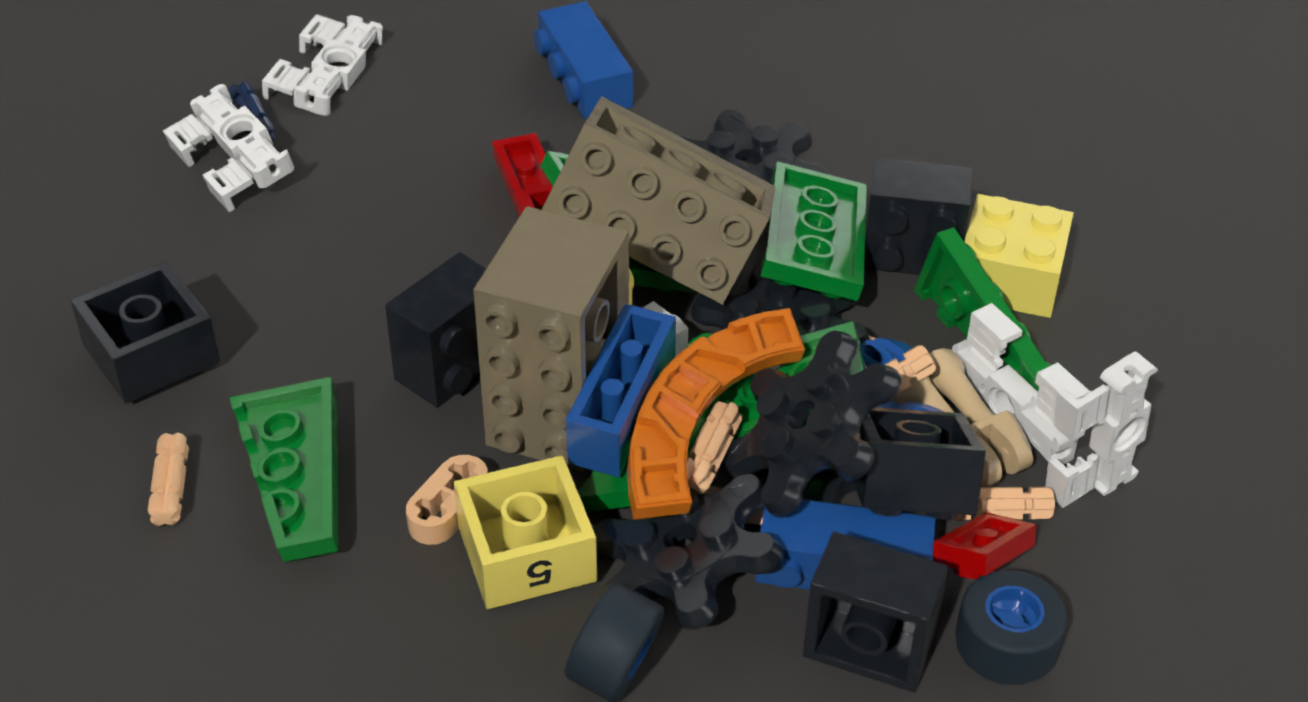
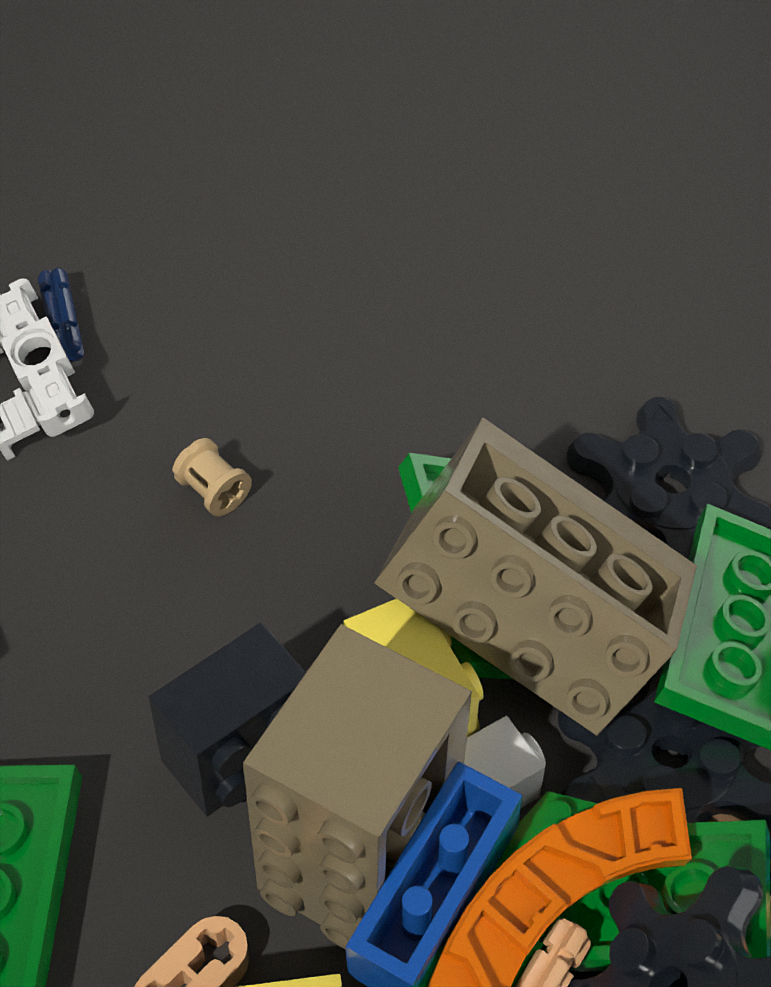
camera: 10 degrees right, 10 degrees up
(339, 45) = (160, 274): white piece -> none
(396, 197) = (212, 477): none -> tan bush
(520, 169) = (378, 446): red plate -> none
(583, 57) = (486, 293): blue brick -> none

